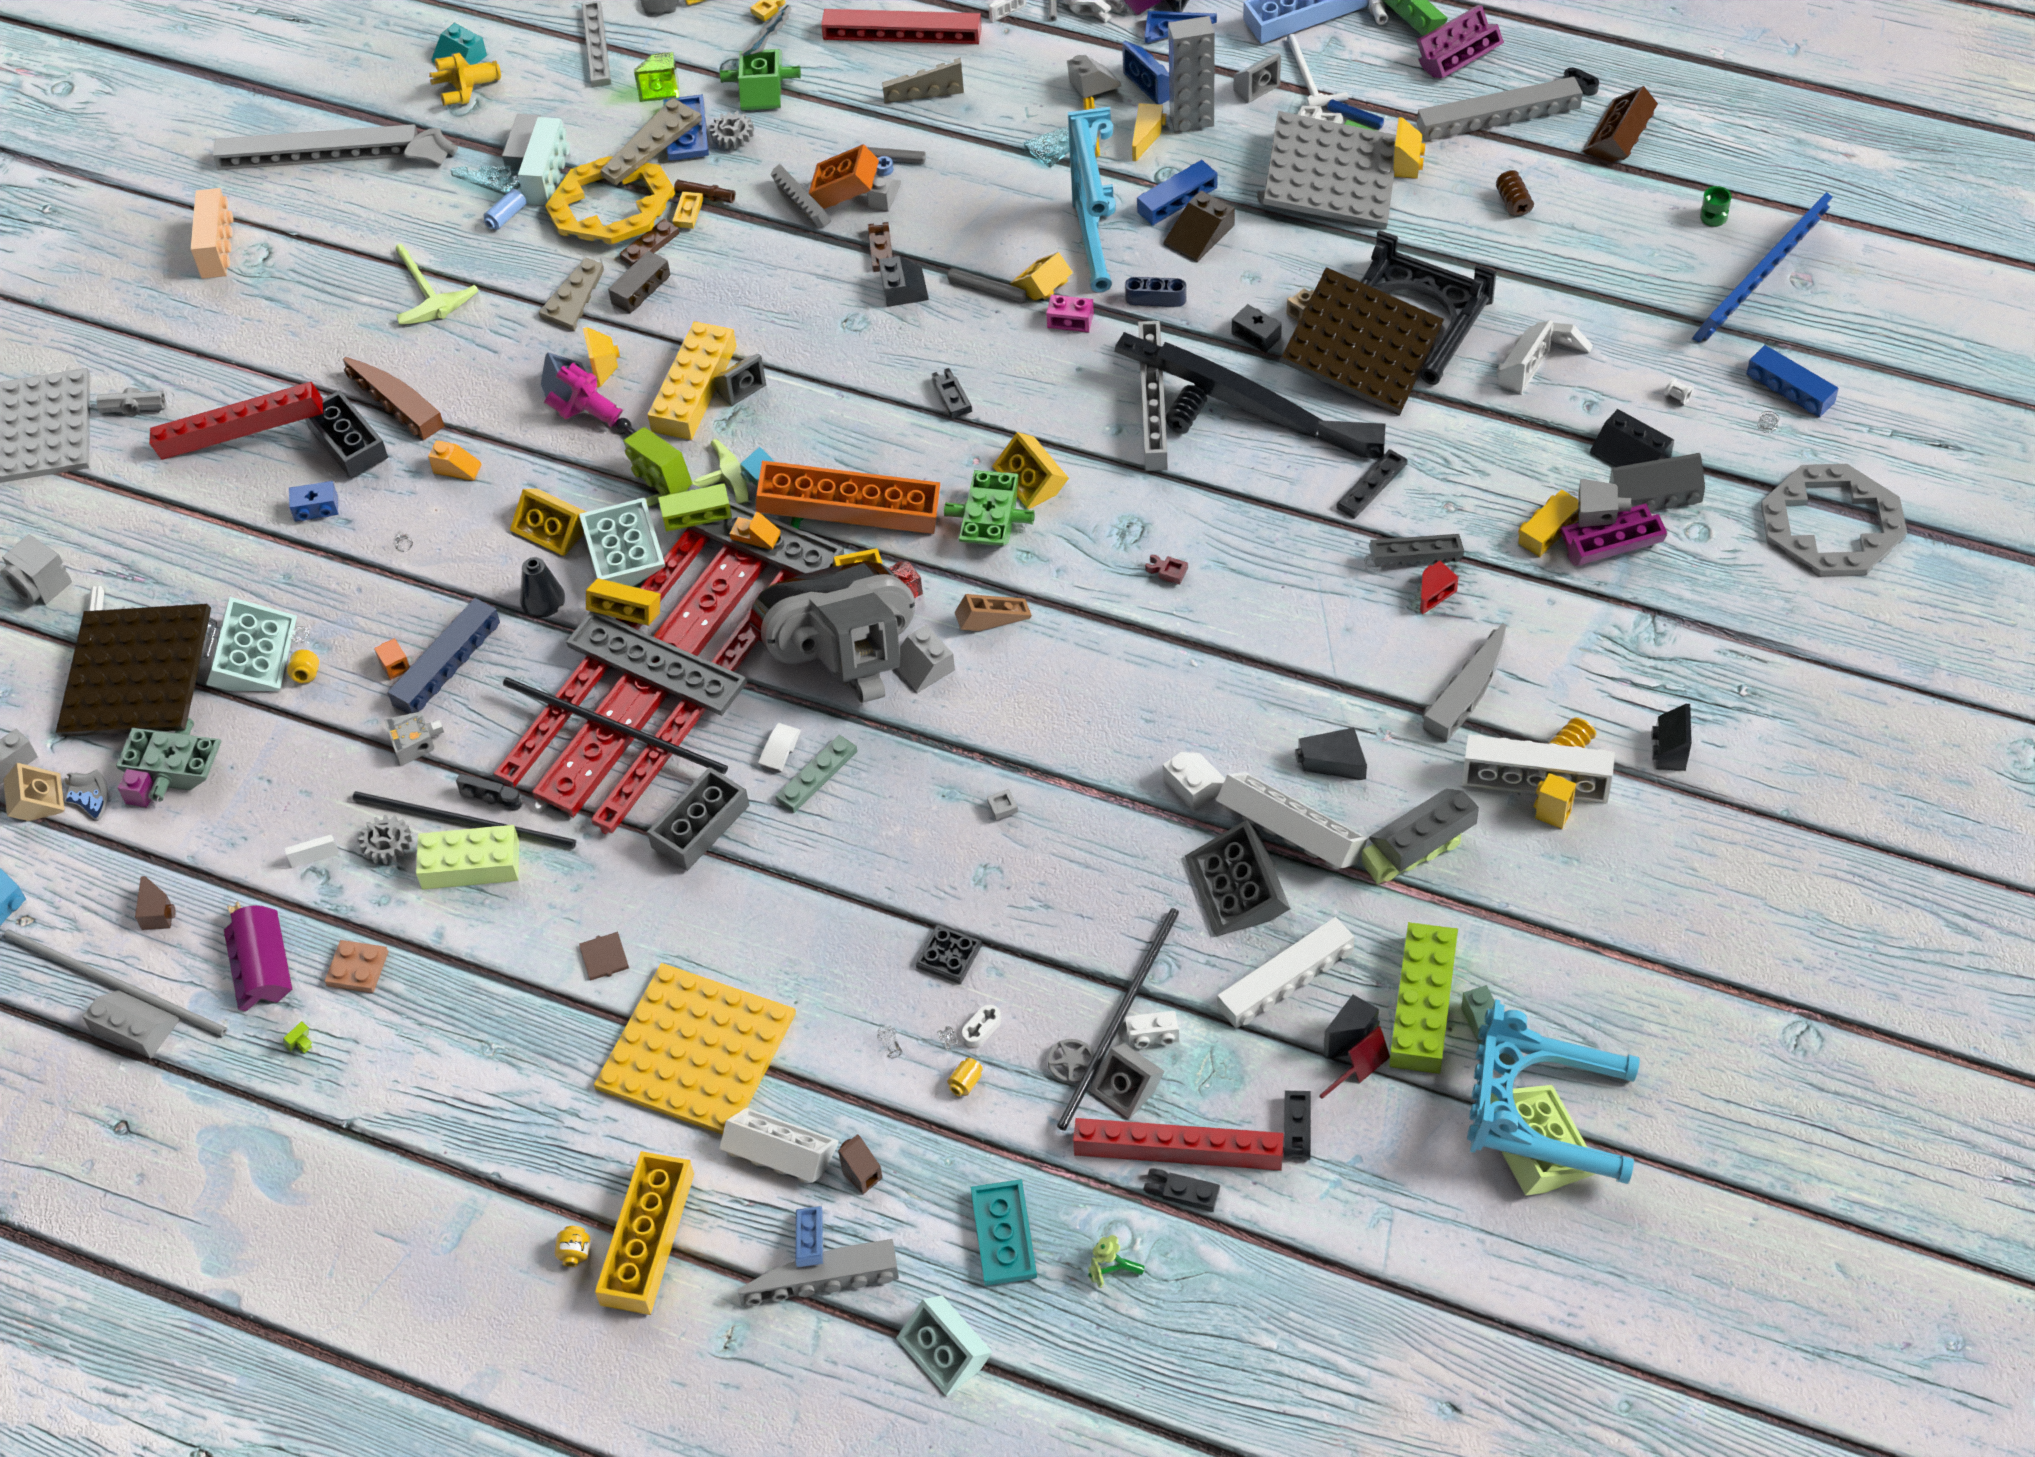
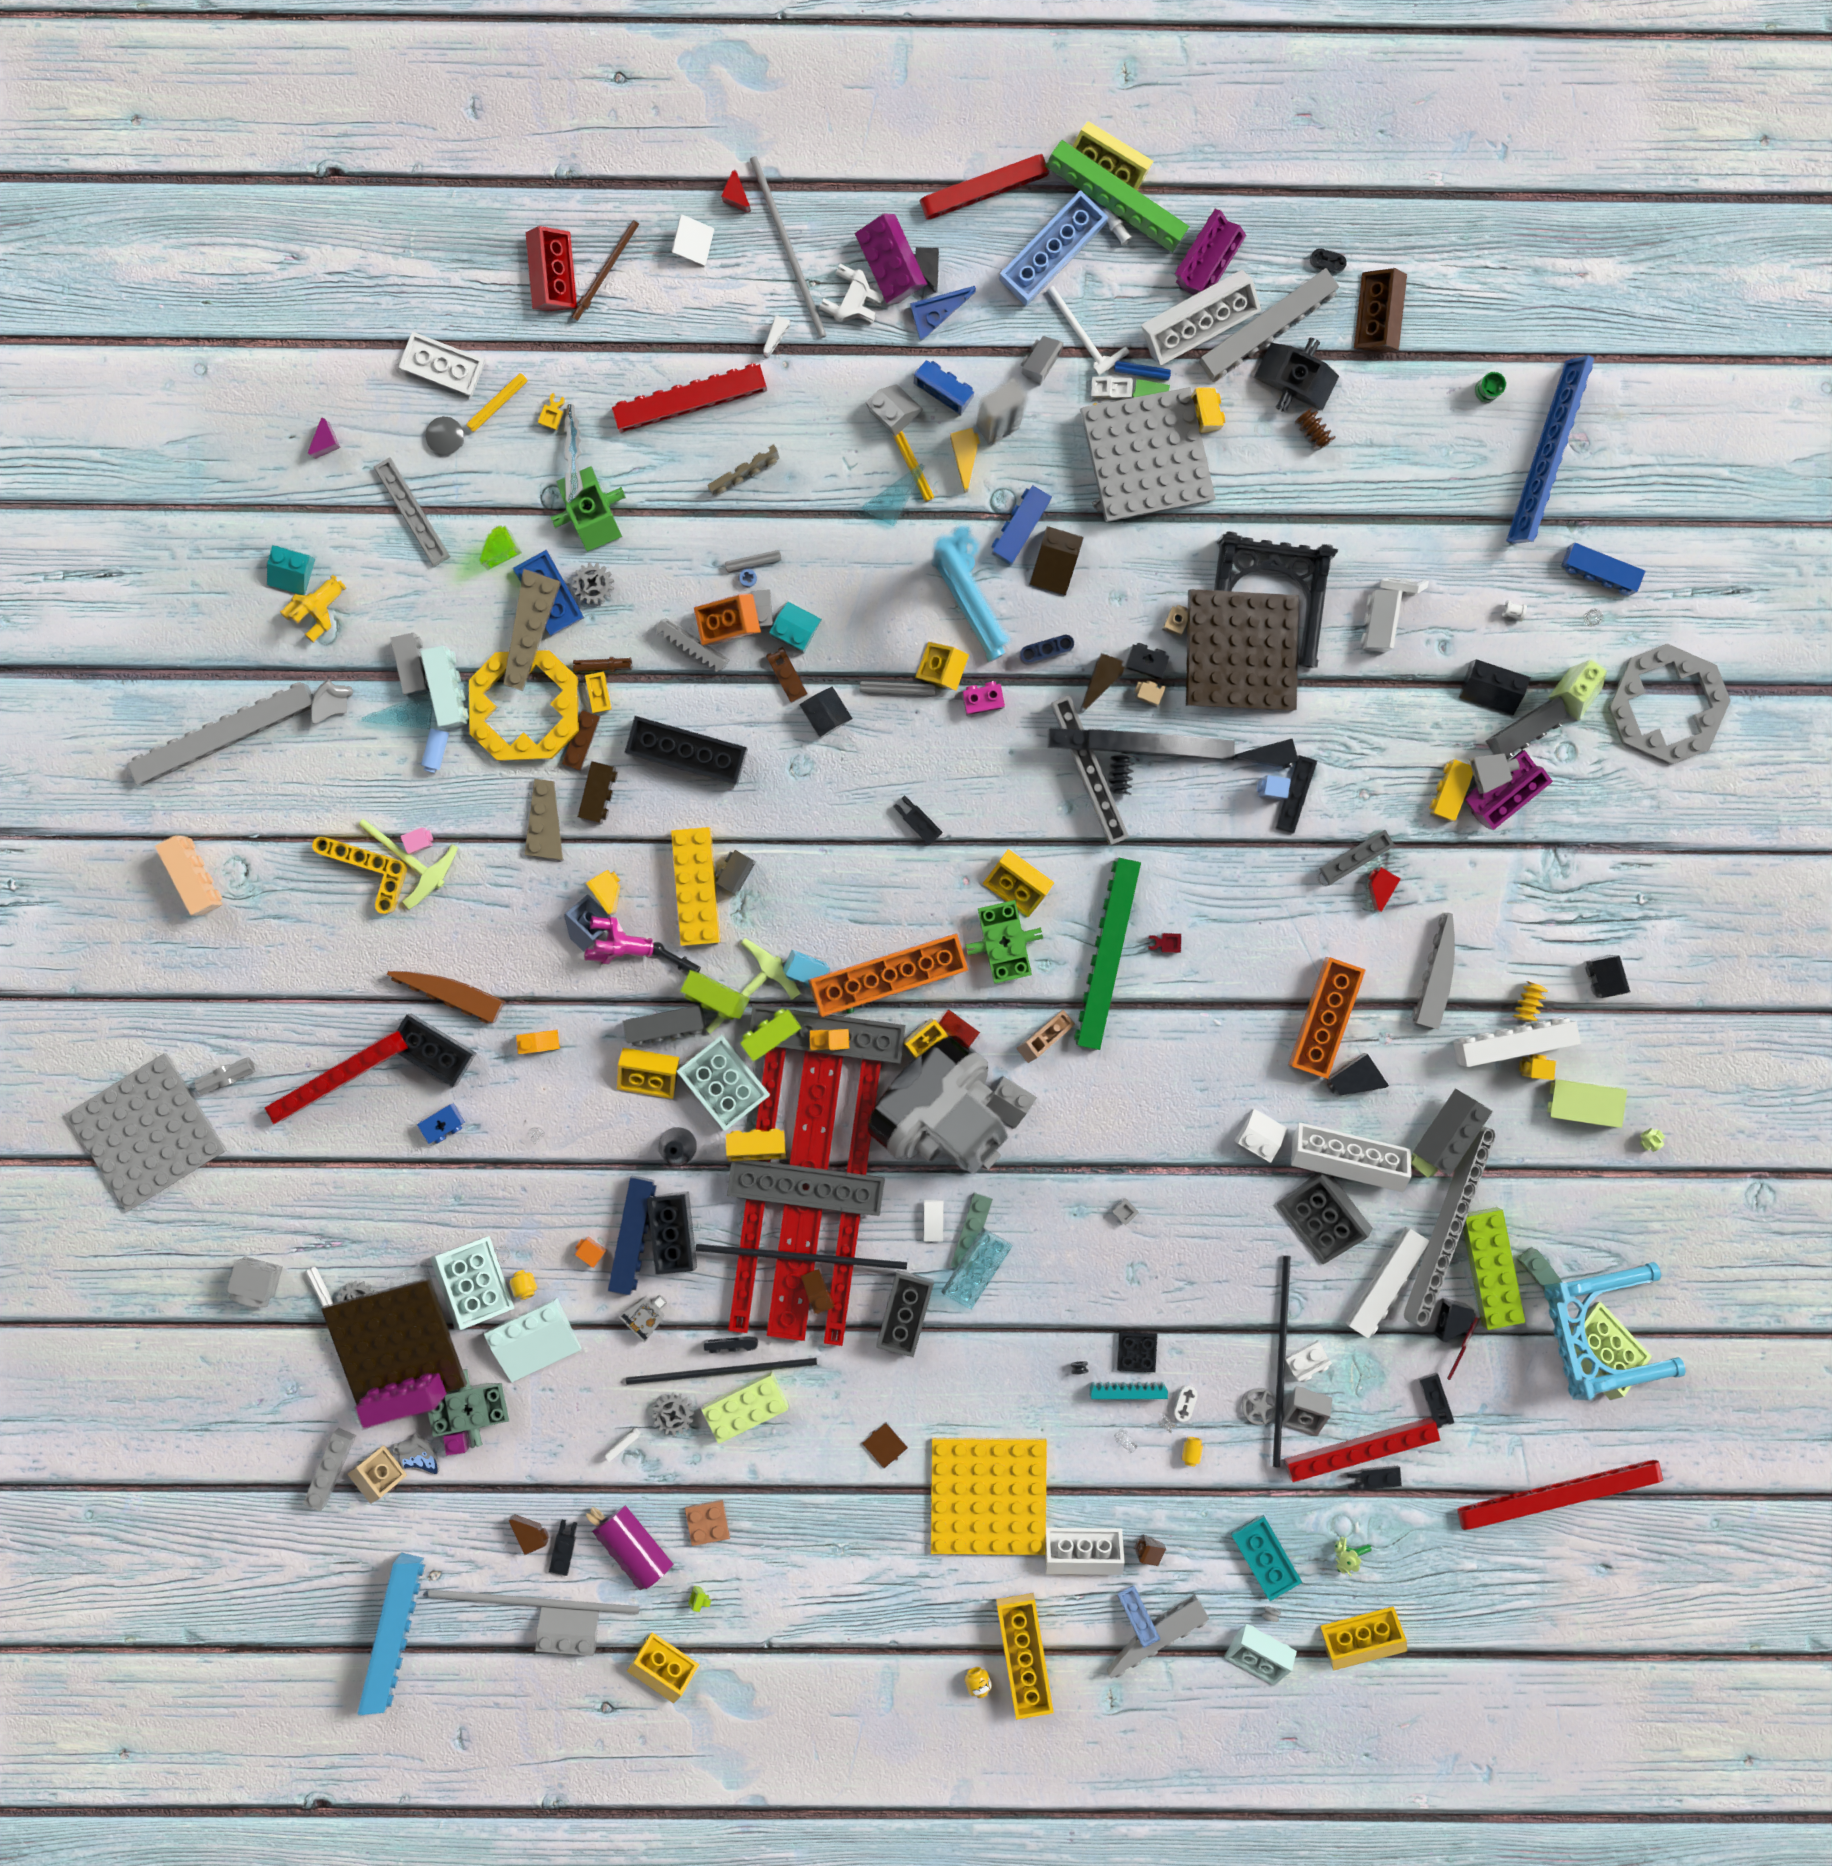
camera: 25 degrees left, 35 degrees up
(106, 705) = (400, 1400): none -> magenta brick
(182, 937) = (563, 1550): none -> black hinge
(211, 1098) = (663, 1668): none -> yellow slope
(280, 720) = (532, 1340): none -> light aqua slope
(399, 284) = (368, 863): none -> yellow beam
(442, 271) = (417, 840): none -> bright pink brick
(487, 661) = (672, 1233): none -> black slope
(591, 476) = (664, 1024): none -> dark grey brick
(611, 763) = (817, 1291): none -> reddish brown slope
(746, 270) = (686, 750): none -> black brick
(803, 801) = (977, 1268): none -> clear light blue plate
(872, 944) = (1079, 1367): none -> black bush
(906, 212) = (795, 627): none -> teal slope
(917, 987) = (1128, 1392): none -> teal gear
(980, 1300) = (1271, 1614): none -> light grey bush
(1088, 1374) = (1363, 1638): none -> yellow slope
(1097, 559) = (1108, 953): none -> green brick
(1200, 322) = (1105, 673): none -> dark brown slope
(1248, 354) = (1149, 692): none -> tan brick
(1320, 682) = (1326, 1017): none -> orange brick
(1347, 459) = (1273, 787): none -> light blue brick
(1378, 932) = (1448, 1229): none -> light grey beam
(1420, 1288) = (1560, 1494): none -> red beam
(1430, 80) = (1201, 317): none -> white brick
(1515, 147) = (1279, 371): none -> black slope
(1610, 860) = (1587, 1103): none -> yellowish green slope
(1676, 924) = (1652, 1139): none -> yellowish green gear
(1729, 457) = (1580, 687): none -> yellowish green slope

